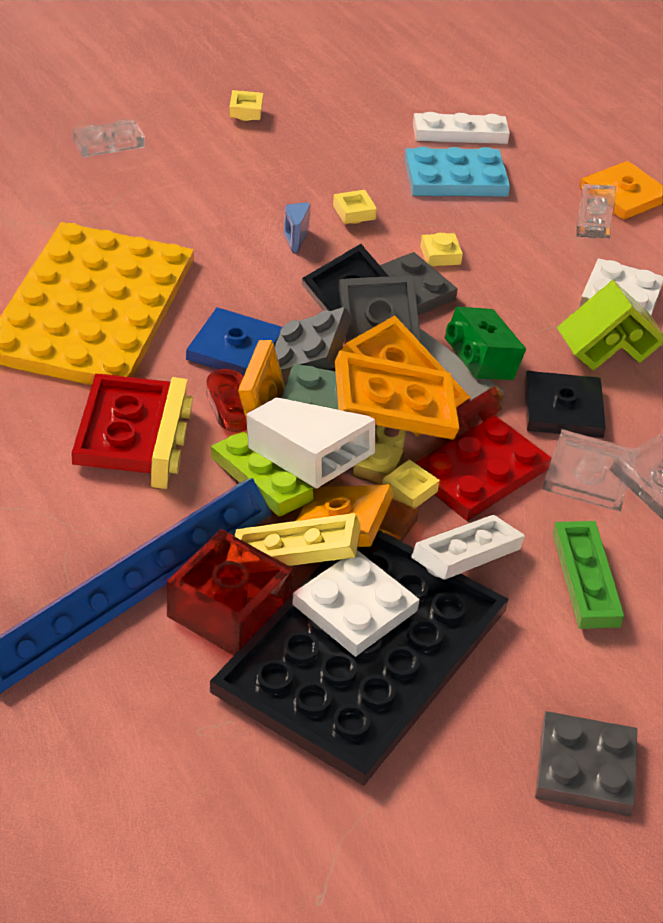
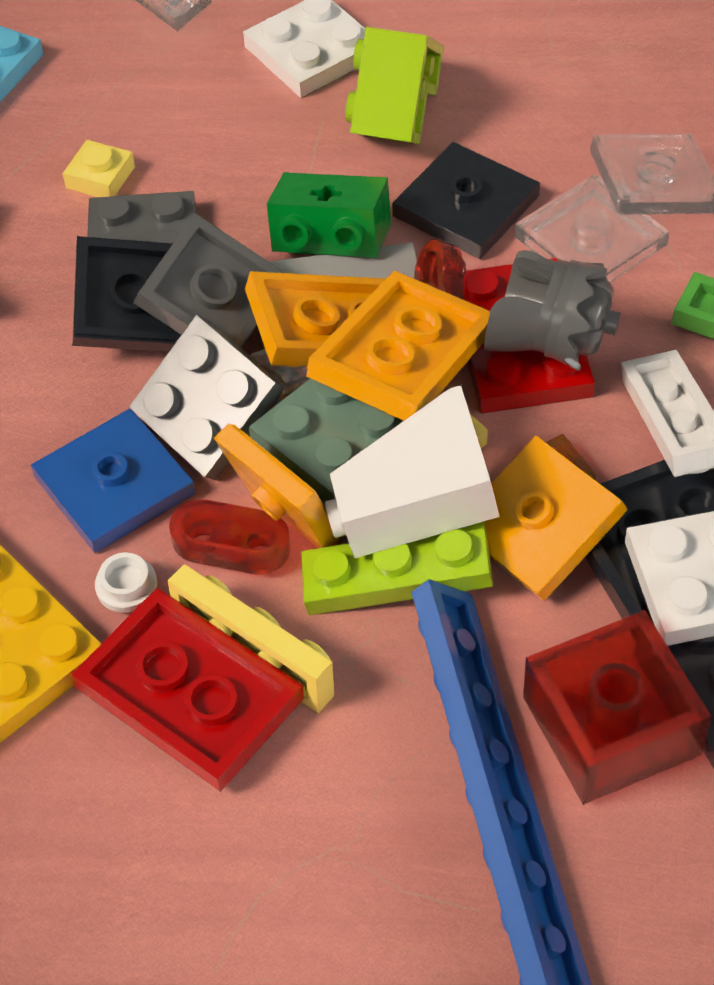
camera: 50 degrees left, 10 degrees up
(171, 367) = (124, 582): none -> white plate
(306, 539) = (573, 582): light yellow plate -> none
(411, 484) = (515, 418): light yellow plate -> none
(480, 454) = (553, 309): none -> dark grey hat

